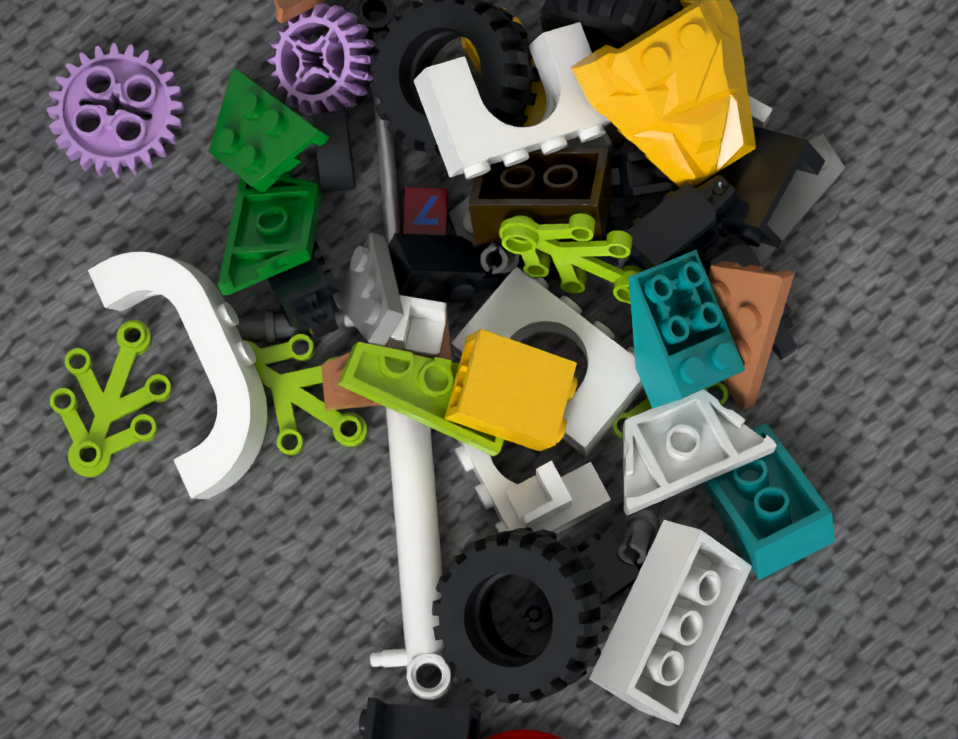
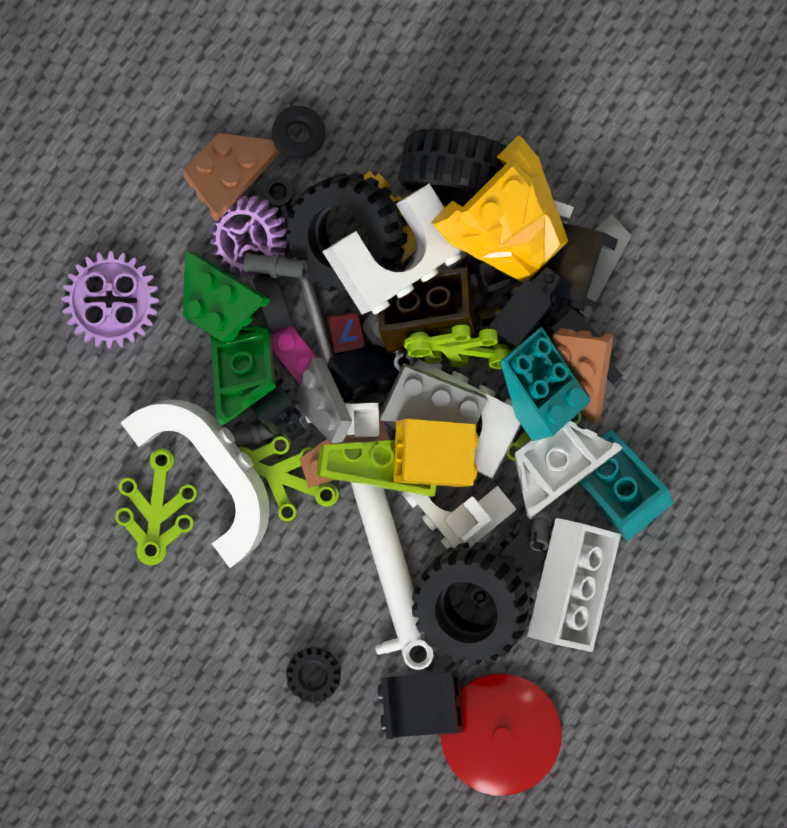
camera: 20 degrees left, 10 degrees up
(255, 657) = (300, 688): none -> black tyre
(344, 225) = (292, 352): none -> dark pink plate
(347, 98) = (275, 266): none -> dark grey pin
(524, 314) = (431, 398): none -> light grey wing

